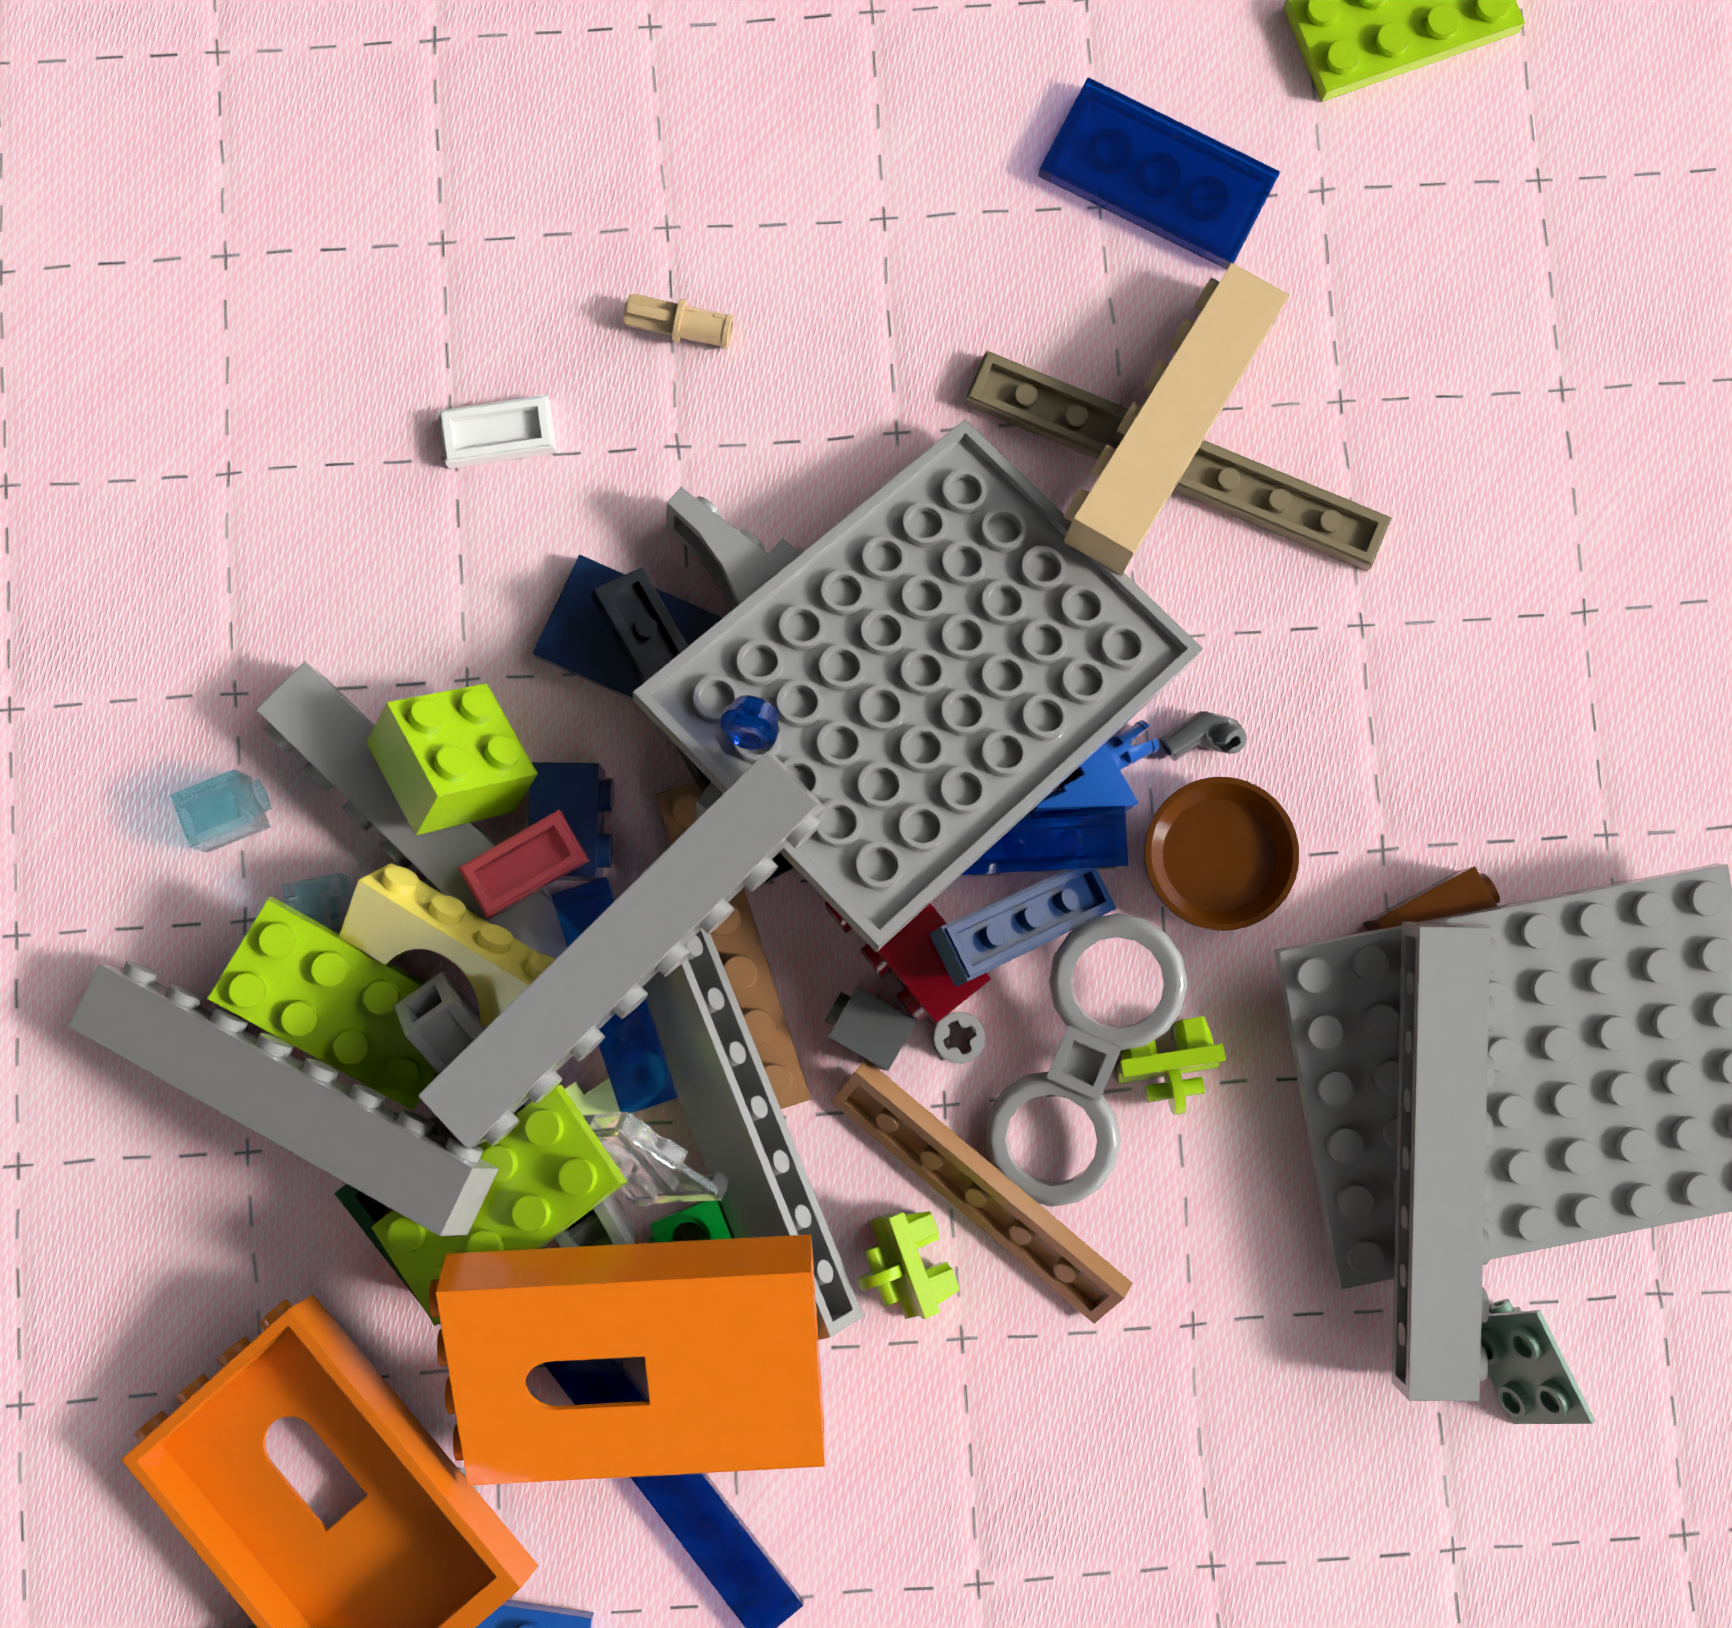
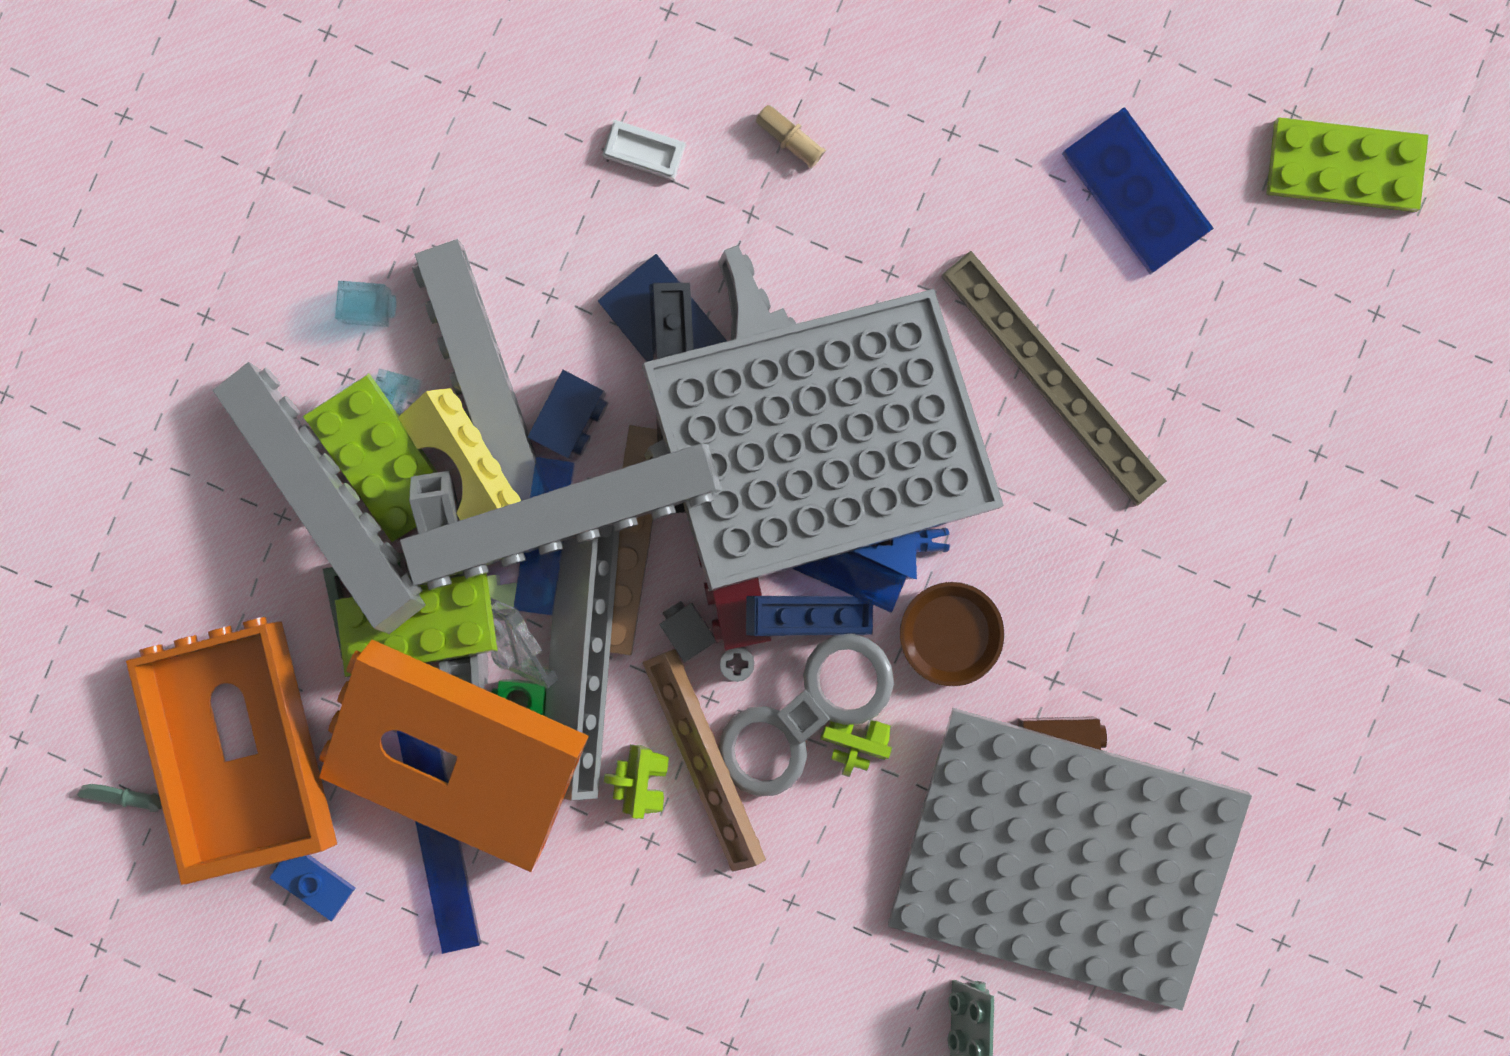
camera: 30 degrees right, 5 degrees up
(450, 758) = (516, 343): lime brick -> none
(523, 864) = (529, 429): coral tile -> none
(750, 723) = (703, 418): clear blue plate -> none
(1175, 418) = (1063, 353): tan brick -> none
(1207, 731) = (984, 554): dark grey arm -> none
(1442, 1160) = (985, 880): light grey brick -> none

